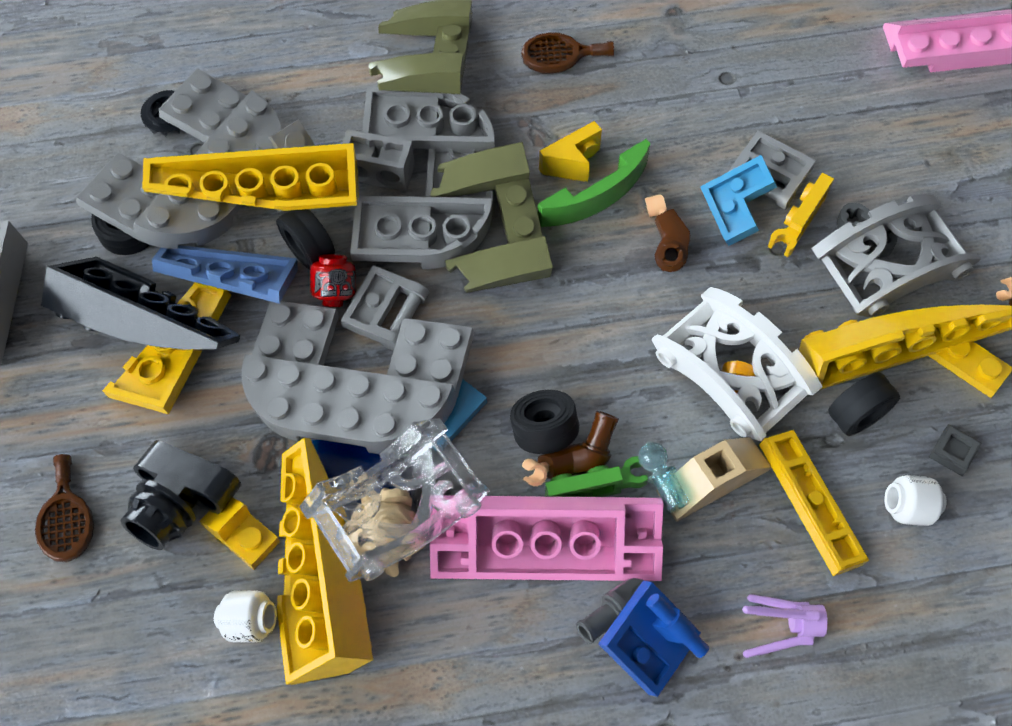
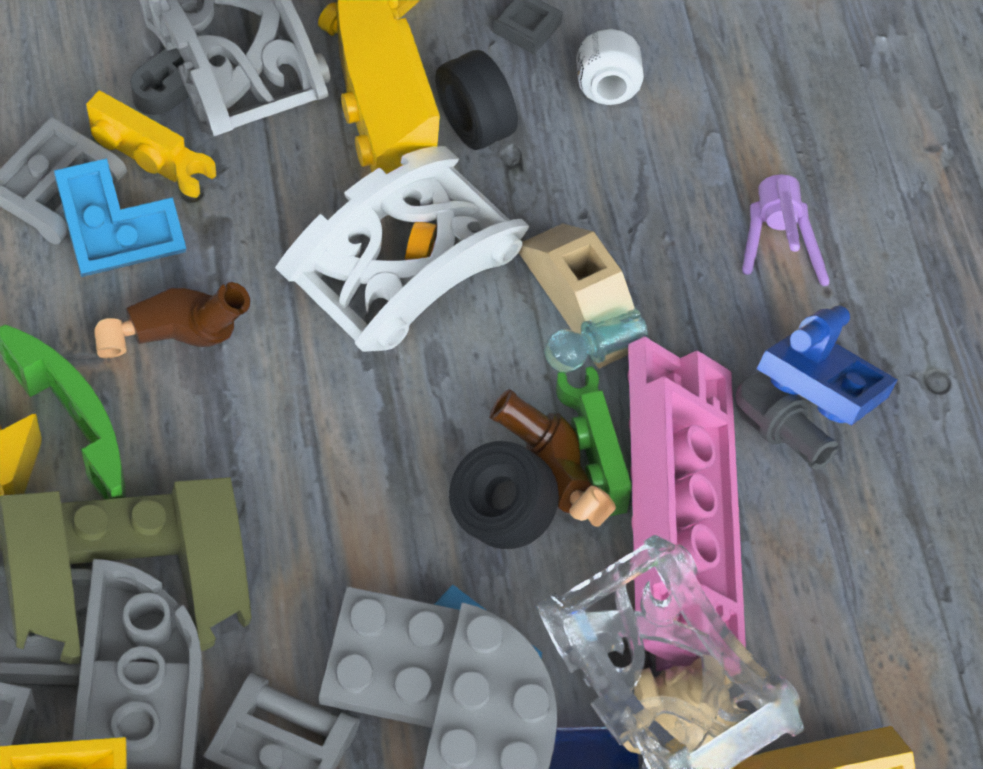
camera: 95 degrees left, 5 degrees down
(813, 503) = (612, 180): yellow plate -> none

